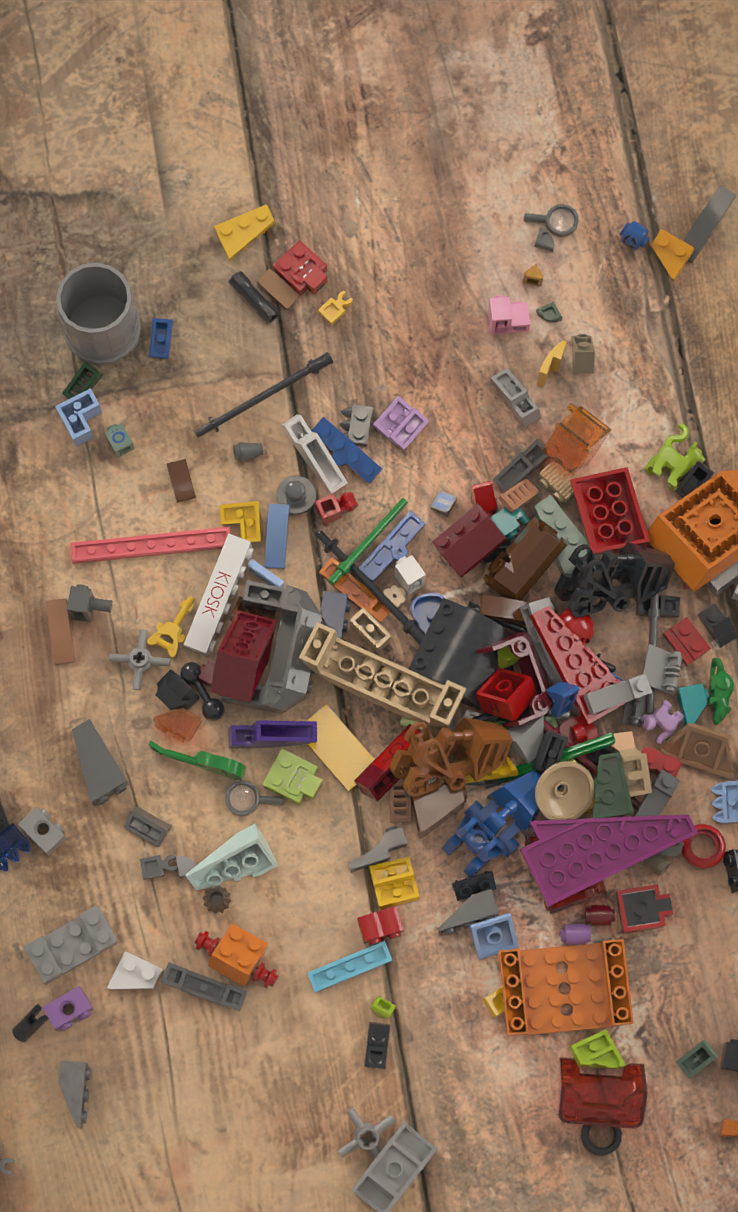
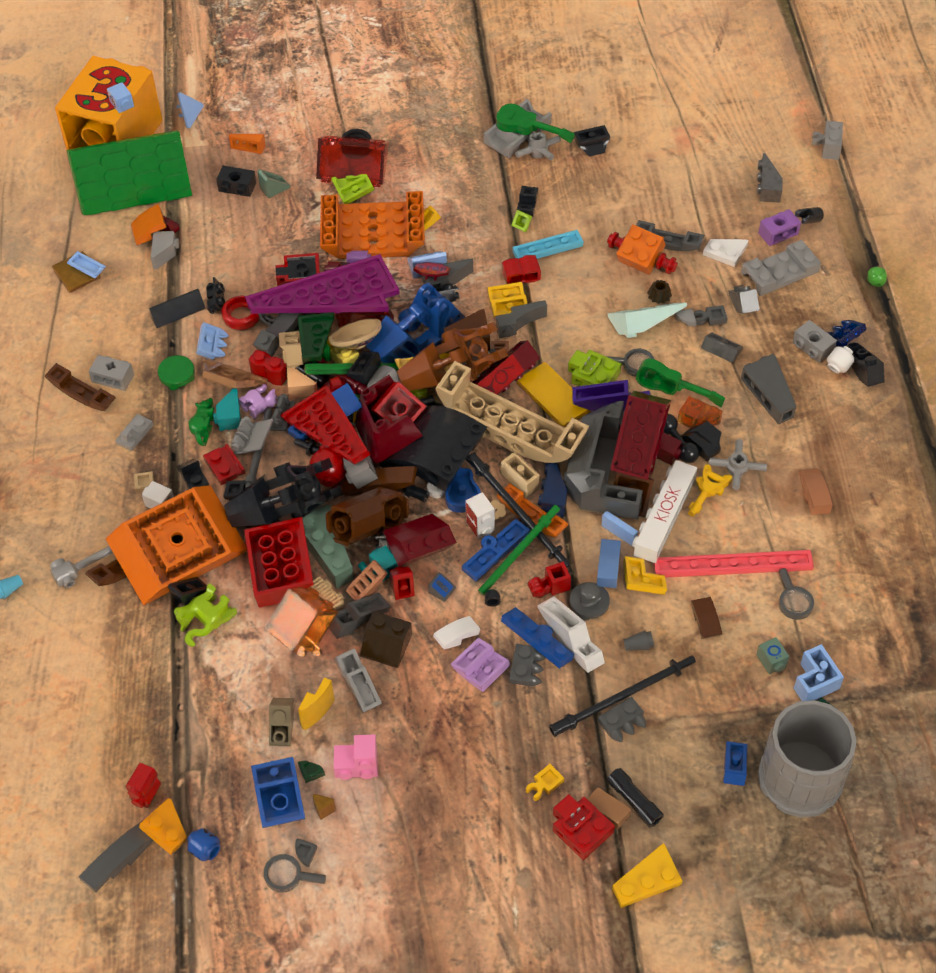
camera: 175 degrees left, 20 degrees down
(16, 802) = (840, 359): none -> white head
(83, 602) = (795, 504): dark grey brick -> none
(92, 504) = (794, 601): none -> piece
(118, 891) = (744, 299): none -> slope
(264, 376) = (621, 718): none -> dark grey plate
(297, 1154) = (593, 140): none -> black slope
(392, 492) = (492, 598): none -> black hinge
(398, 1168) = (516, 119): none -> green piece
(425, 451) = (453, 633): none -> white slope
(485, 898) = (431, 269): none -> piece
(493, 442) = (386, 639): none -> dark brown slope
(576, 288) = (278, 792): none -> blue slope
(617, 693) = (295, 406): light grey slope -> none
(697, 279) = (143, 785): none -> red brick

